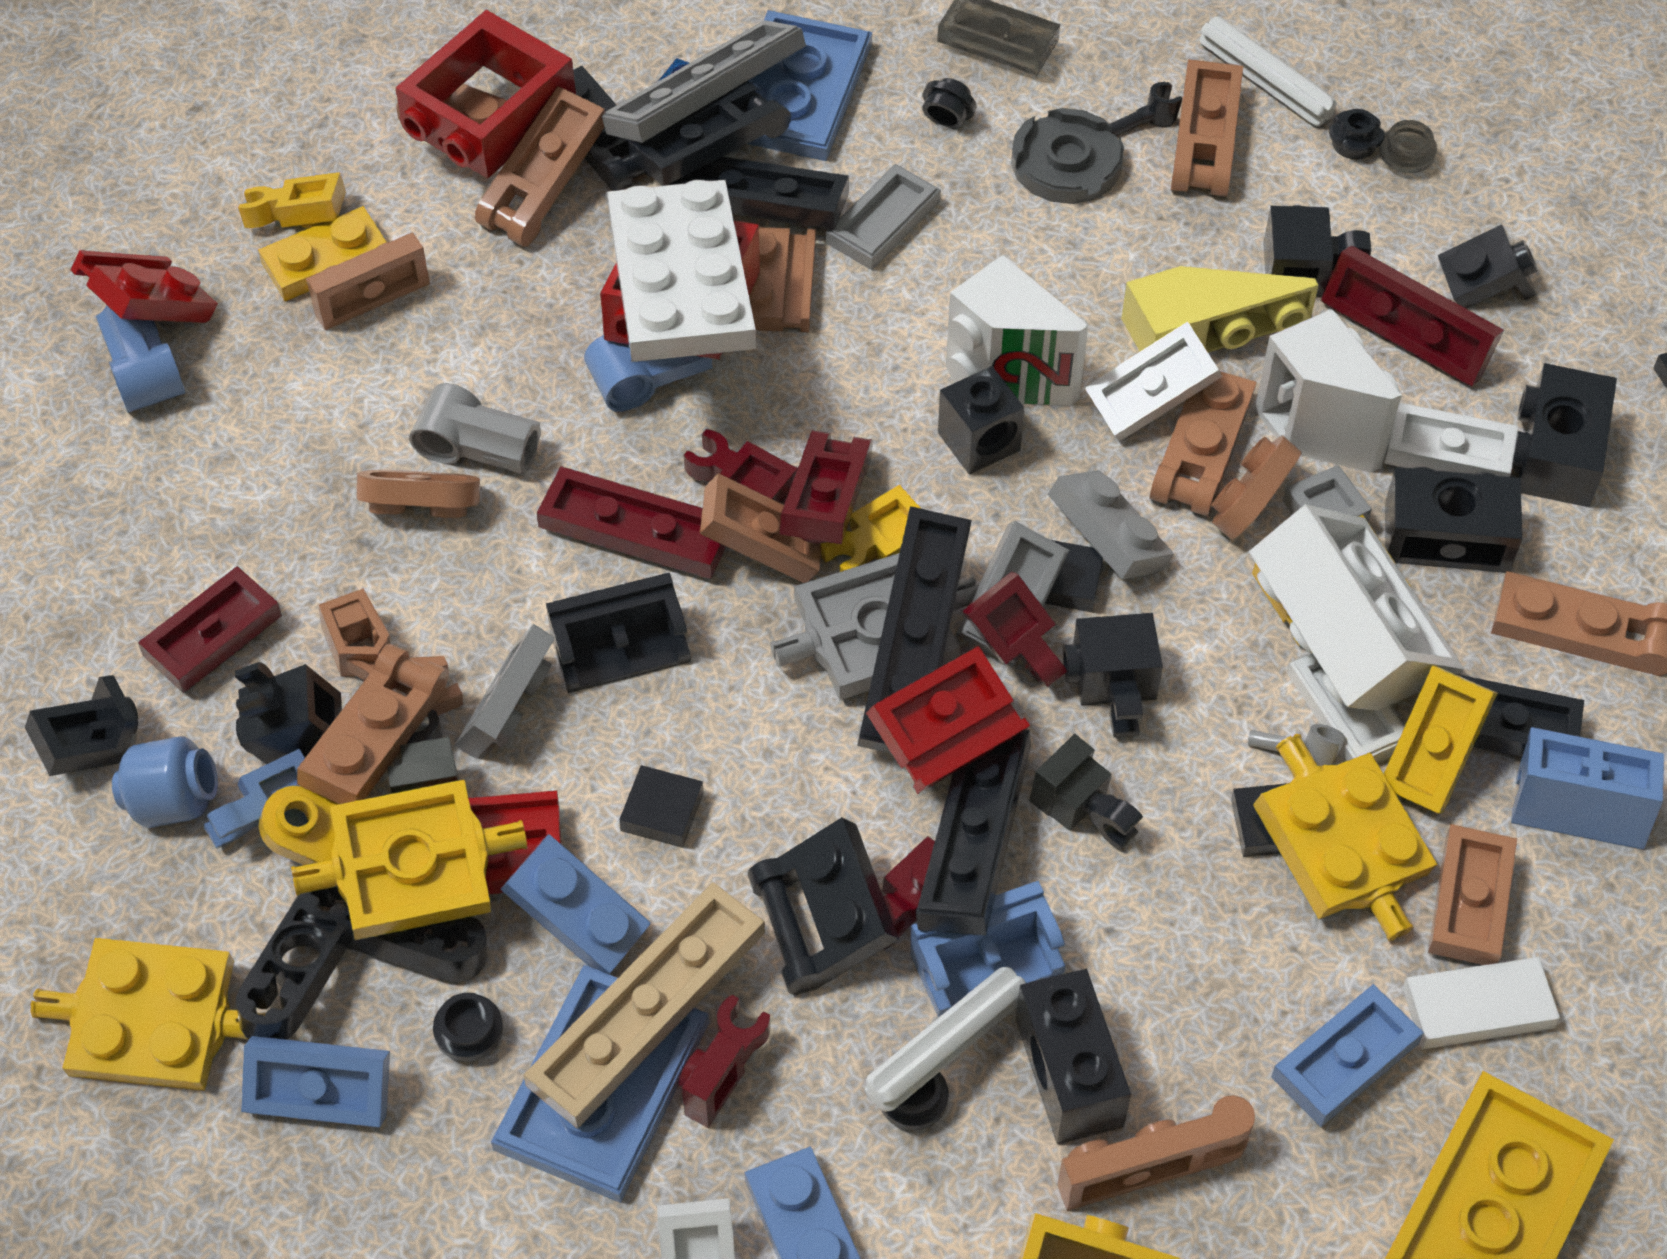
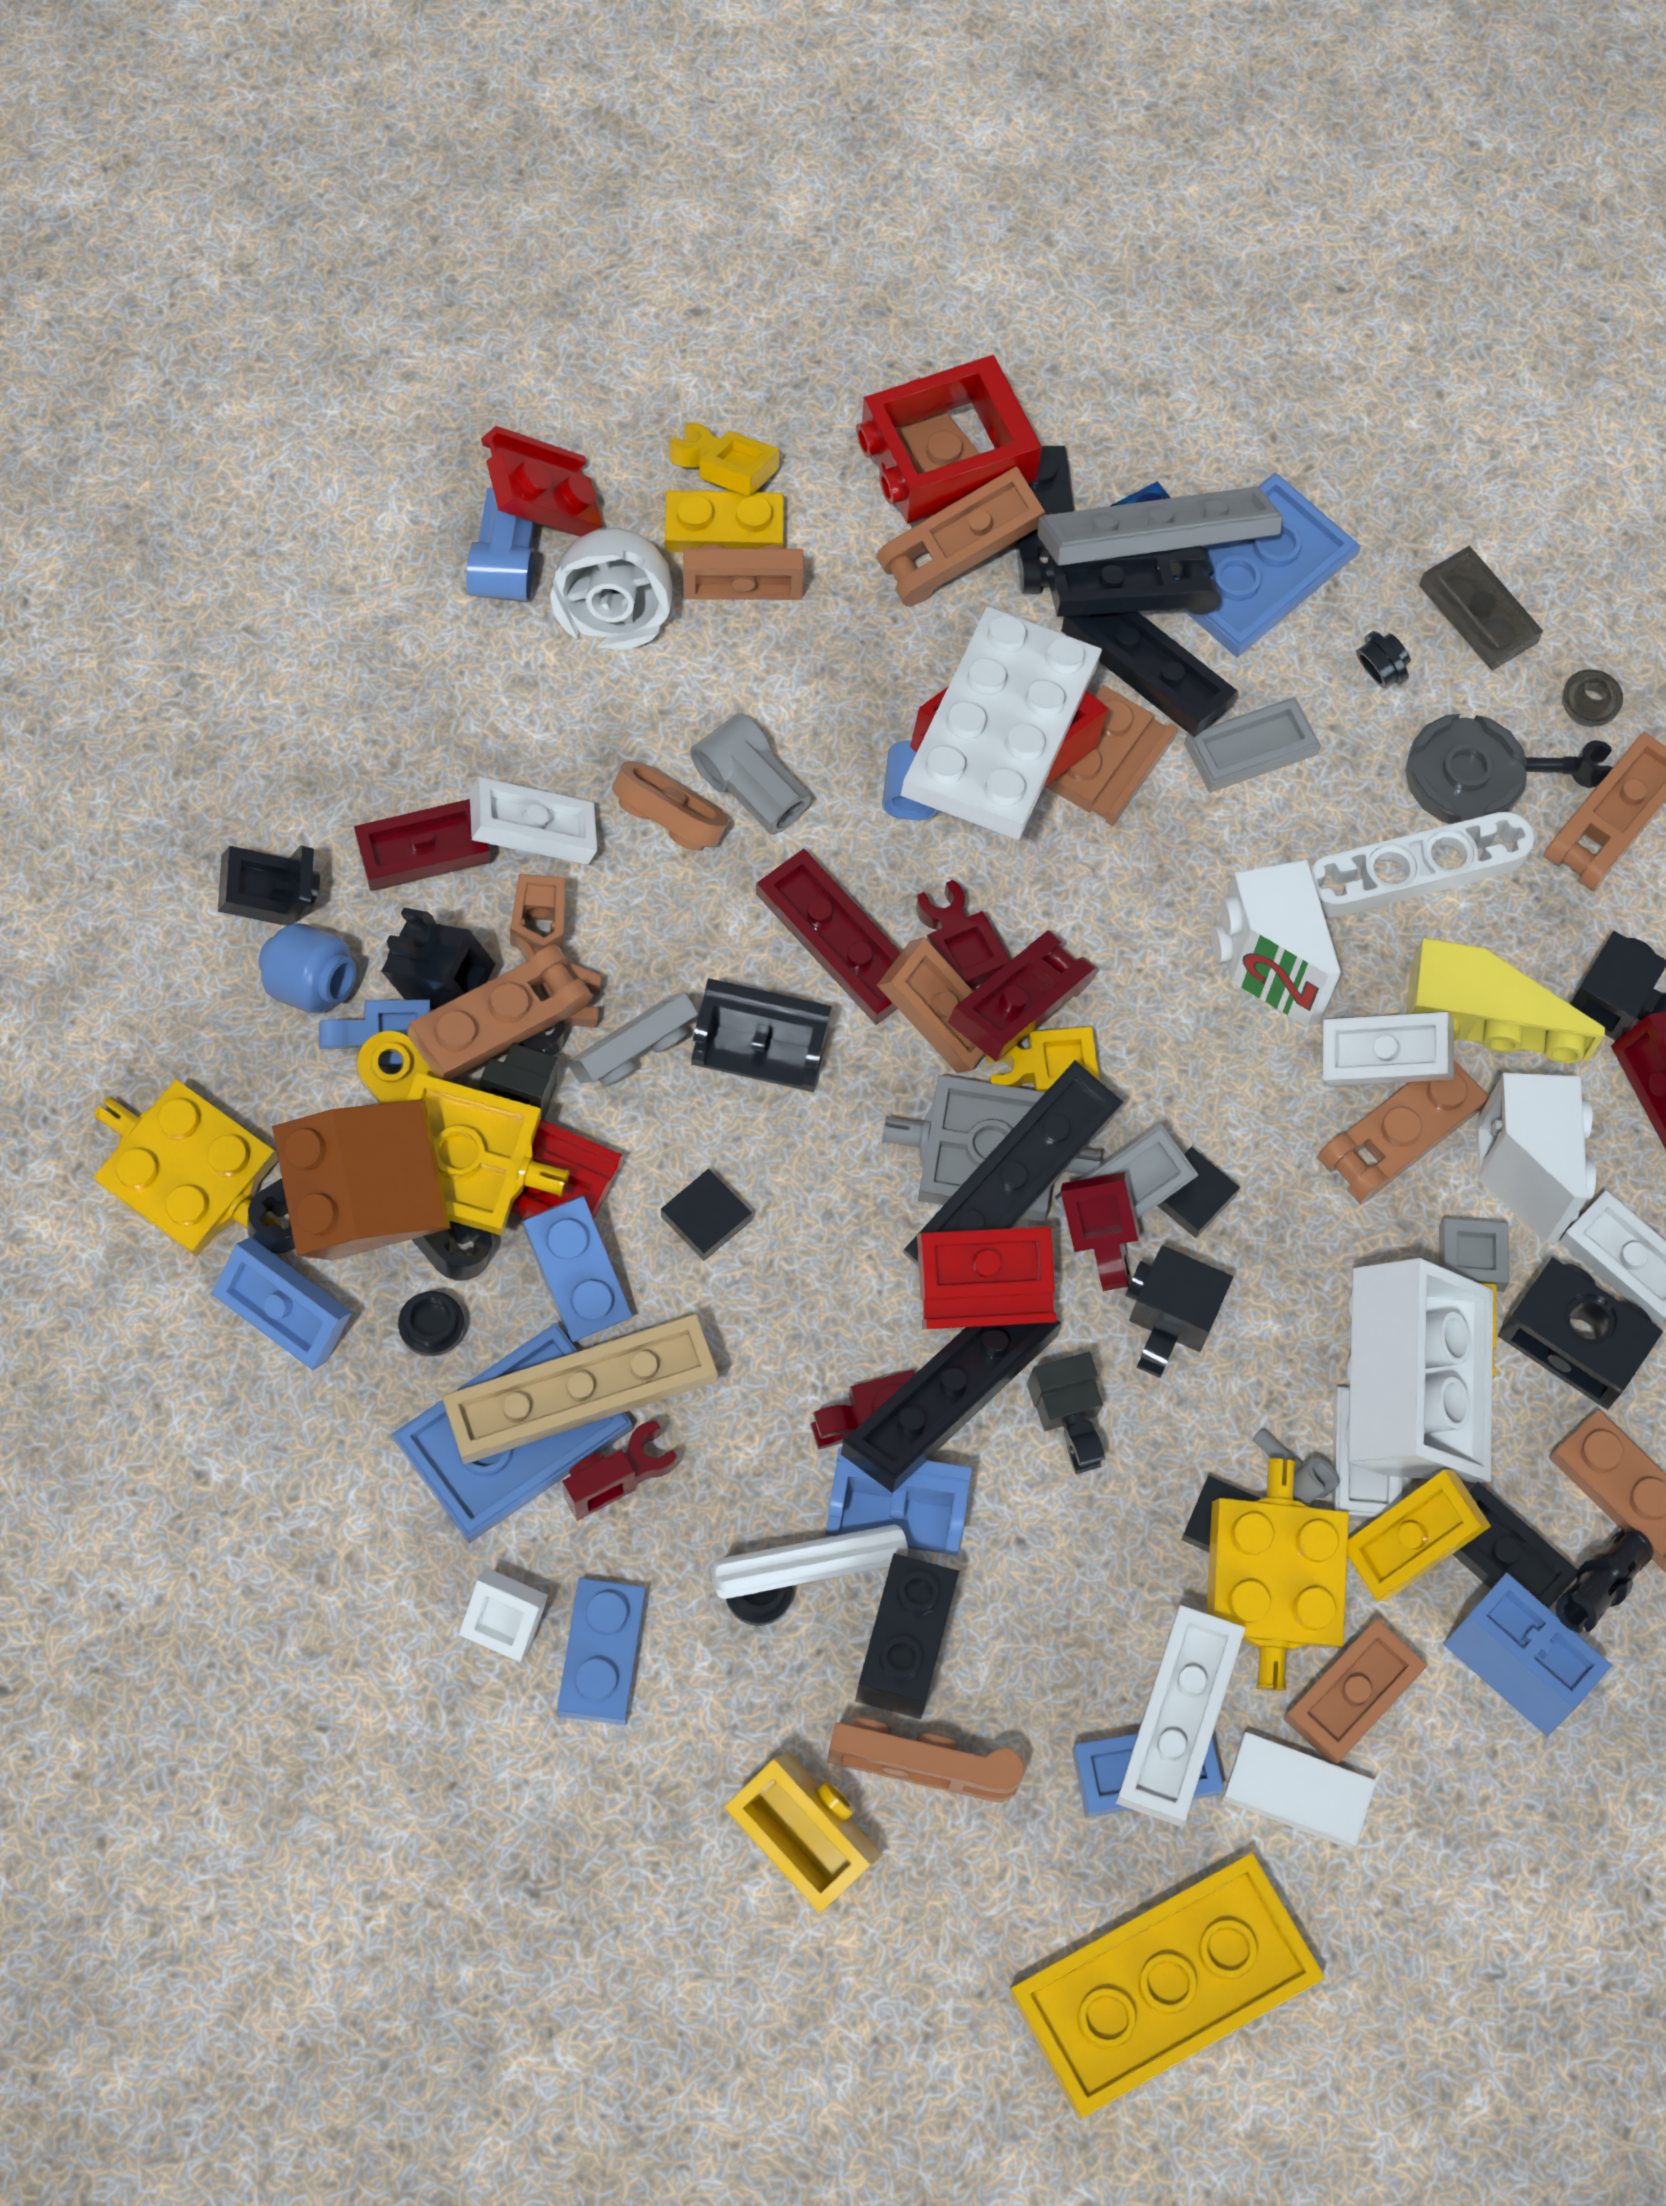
camera: 25 degrees right, 10 degrees up
(261, 330) = (608, 580): none -> white cylinder
(303, 558) = (533, 820): none -> white plate
(336, 917) = (360, 1178): none -> dark orange slope
(842, 901) = (798, 1386): black plate -> none
(980, 420) = (1205, 1002): black brick -> none
(1086, 245) = (1415, 857): none -> white beam
(1111, 524) = (1261, 1166): light grey plate -> none
(1129, 59) = (1590, 711): none -> clear smoke plate
(1245, 499) = (1395, 1210): nougat plate -> none
(1352, 987) = (1180, 1716): none -> white plate
(1608, 694) = (1604, 1580): none -> black pin

